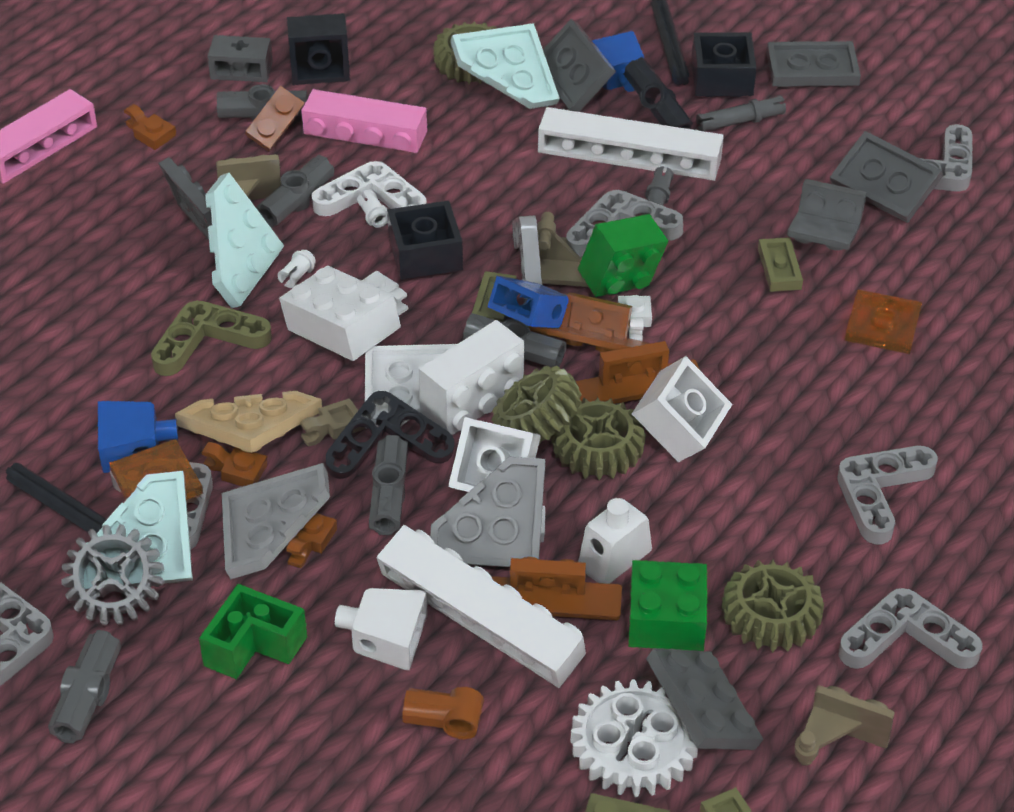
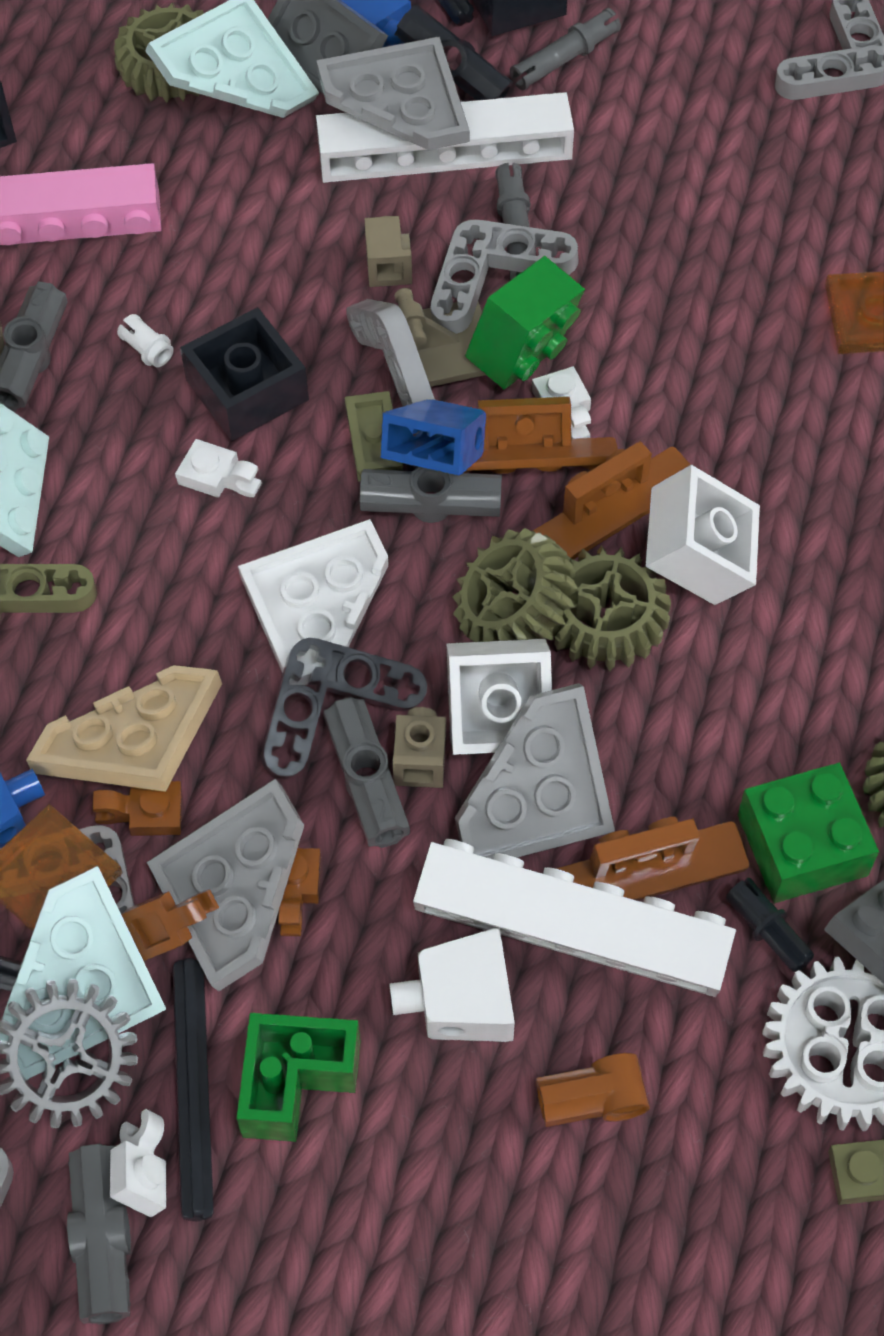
camera: 20 degrees left, 15 degrees up
(125, 656) = (135, 1171): none -> white plate
(184, 630) = (192, 1091): none -> black axle
(209, 523) = (162, 925): none -> dark orange plate
(301, 262) = (86, 459): white pin -> none
(331, 421) = (246, 692): dark tan plate -> none
(340, 312) = (184, 527): white brick -> none
(371, 176) = (129, 301): white beam -> none
(431, 476) = (419, 749): none -> dark tan brick
(471, 376) = (410, 576): white brick -> none
(557, 197) = (387, 252): none -> dark tan brick
(606, 104) = (400, 91): none -> light grey plate
(614, 541) = (705, 754): white torso -> none
(615, 651) = (769, 924): none -> black axle
(780, 264) = (716, 266): olive plate -> none
(828, 215) = (748, 177): dark grey bracket -> none
(888, 174) = (794, 94): dark grey plate -> none

